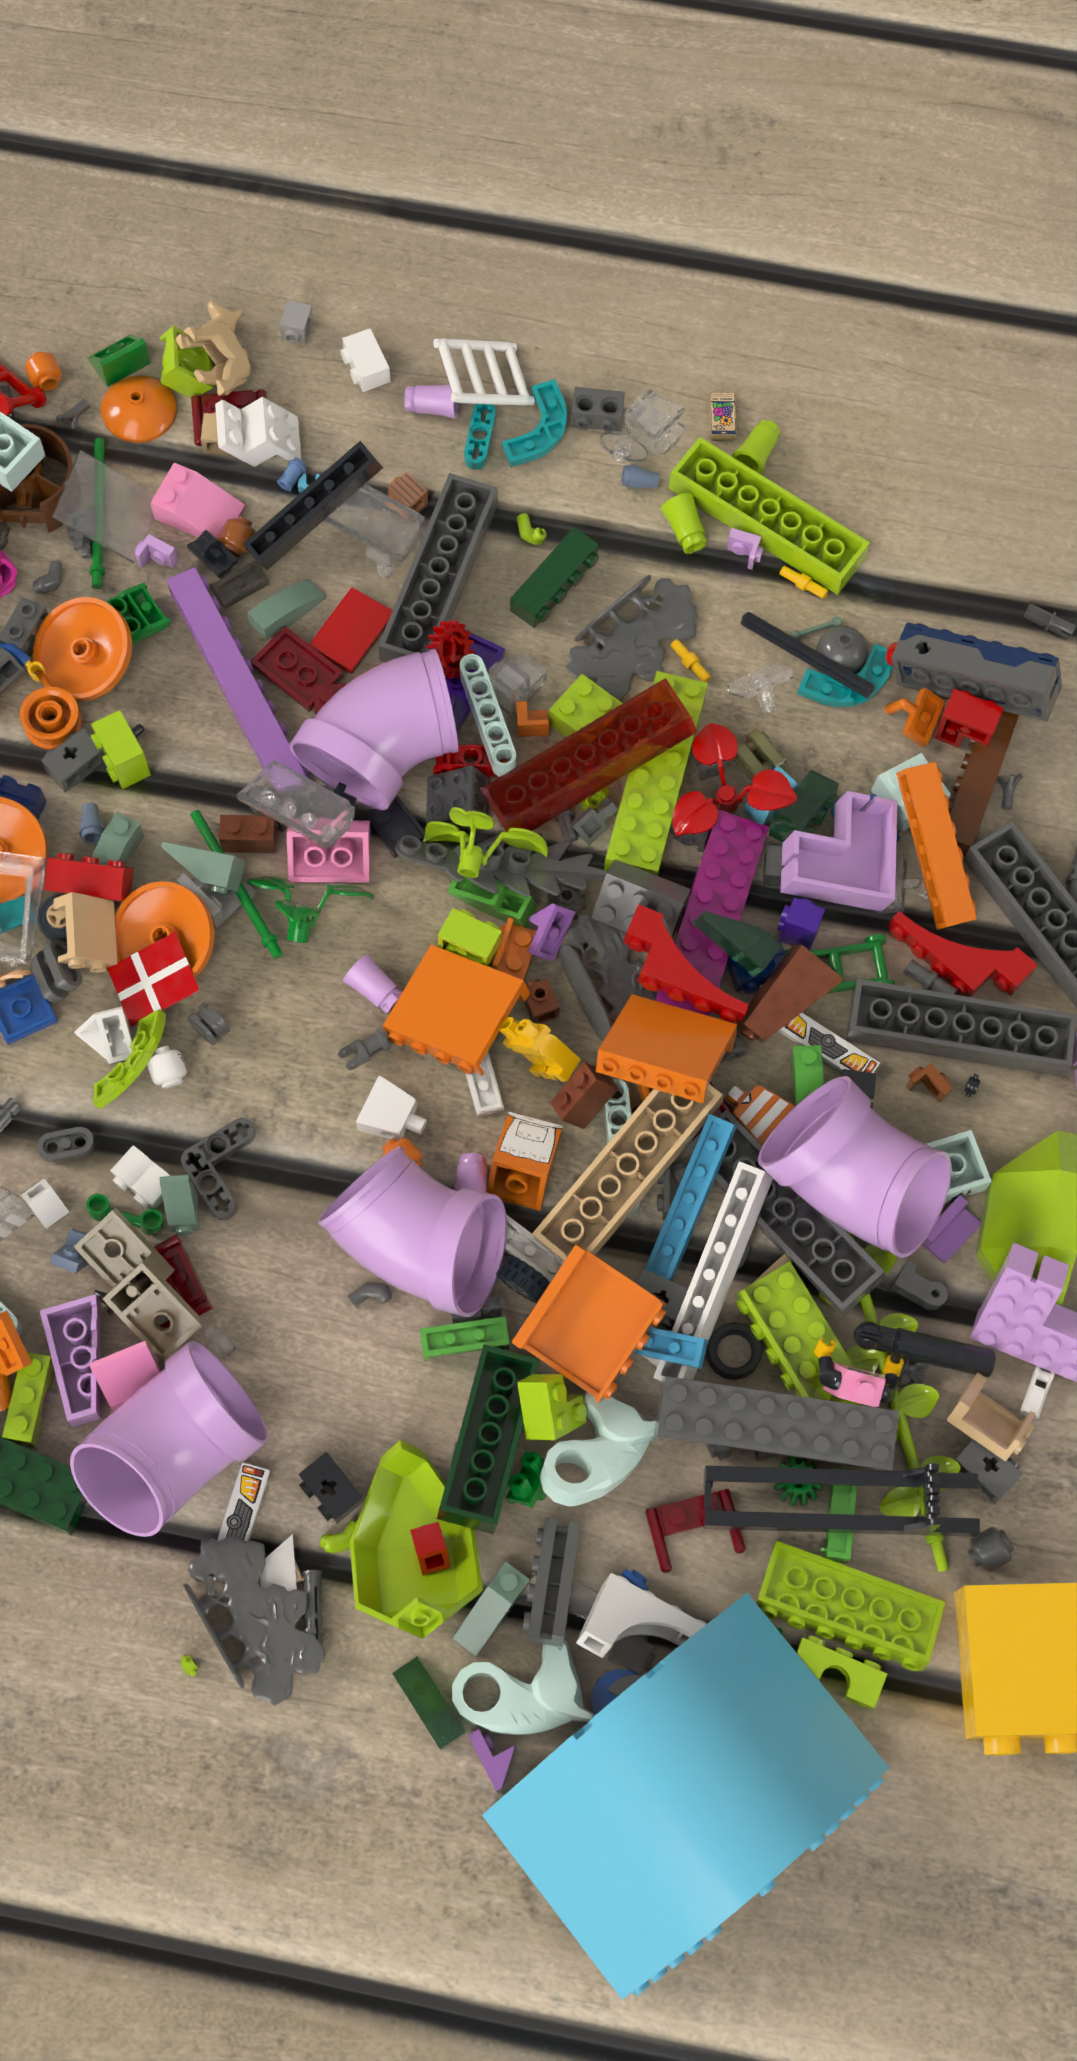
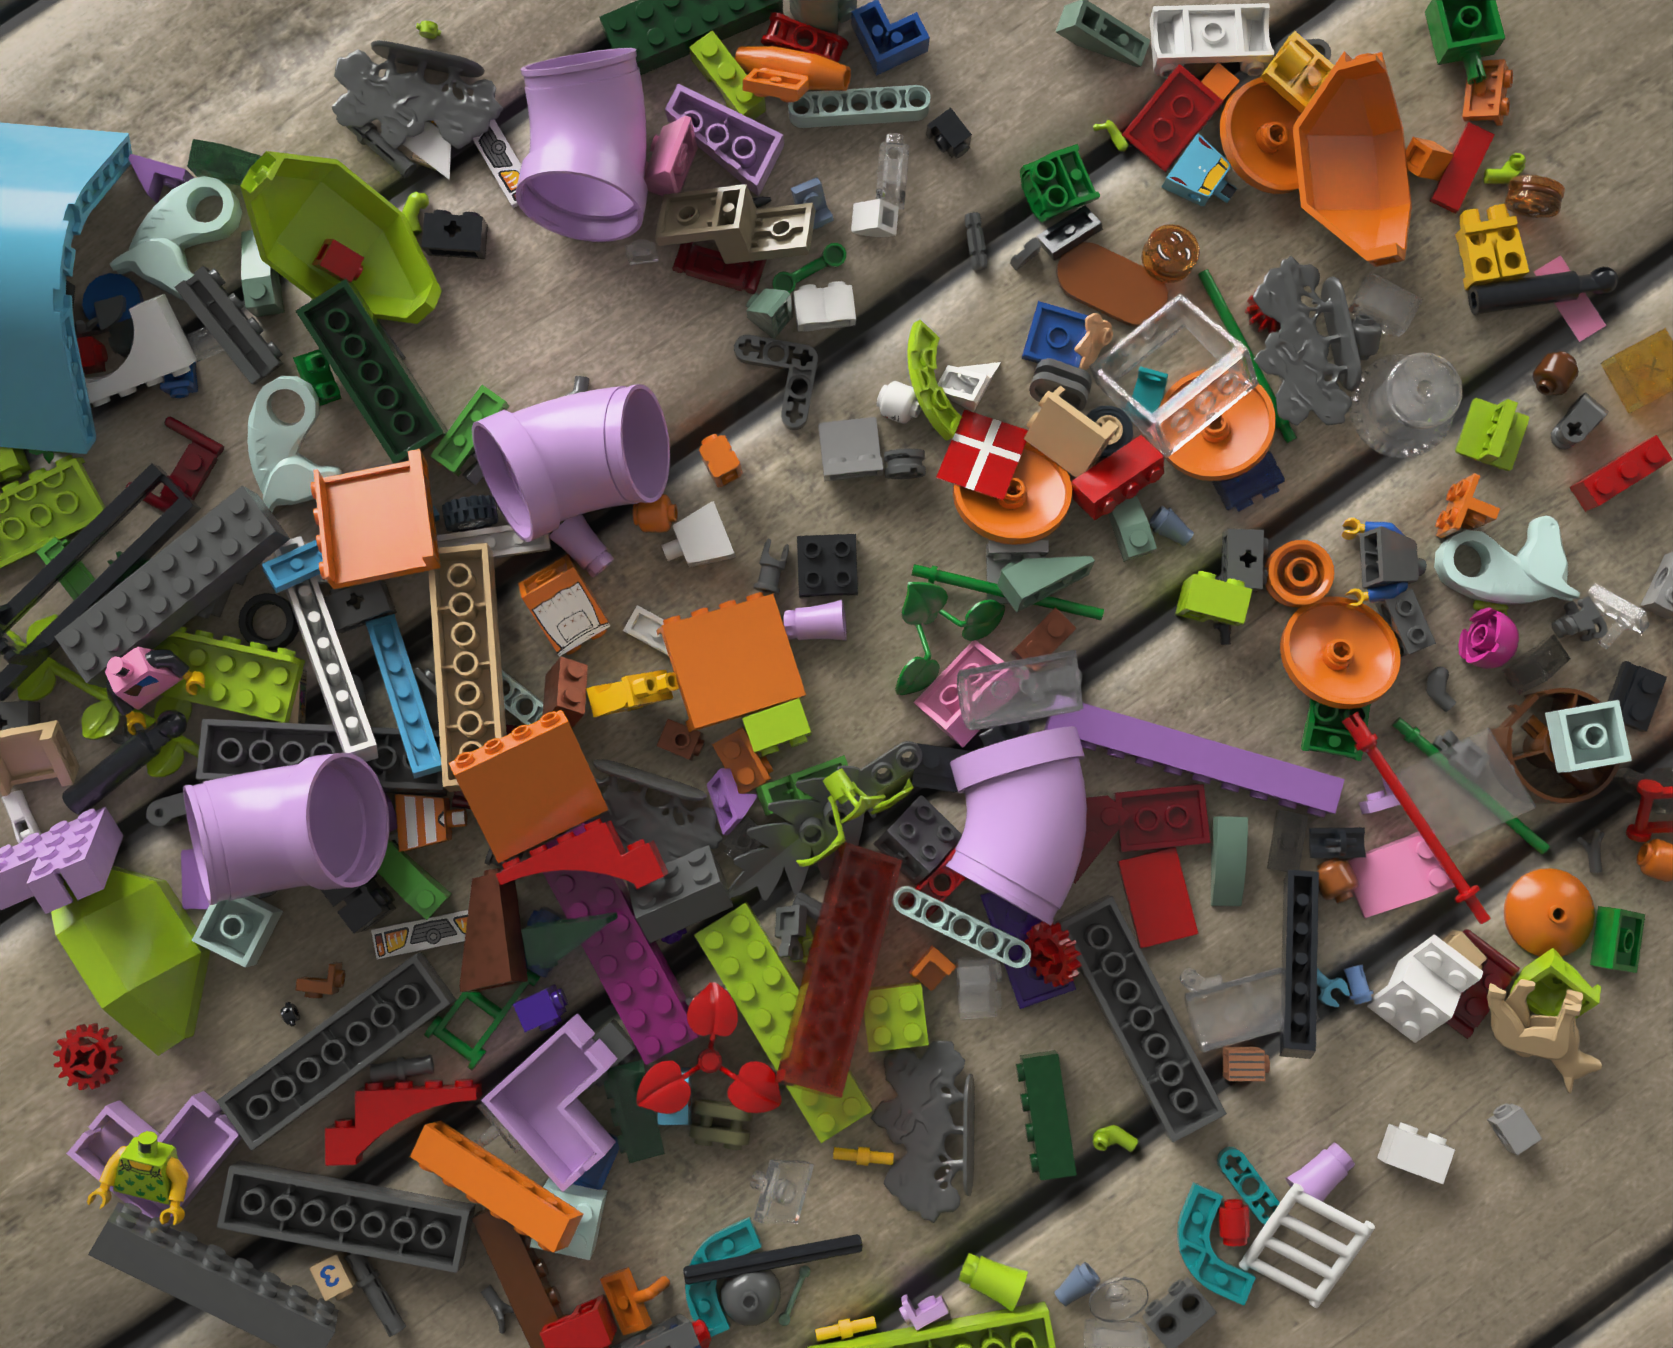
camera: 135 degrees right, 15 degrees up
(66, 1142) = (907, 275): dark grey plate -> none
(129, 583) = (1367, 743): none -> red bar
(232, 1070) = (850, 449): none -> light grey bracket
(322, 1142) = (720, 459): none -> orange brick
(328, 1014) = (827, 565): none -> black brick
(511, 423) = (1234, 1222): none -> red brick
(548, 1408) = (347, 434): lime brick -> none

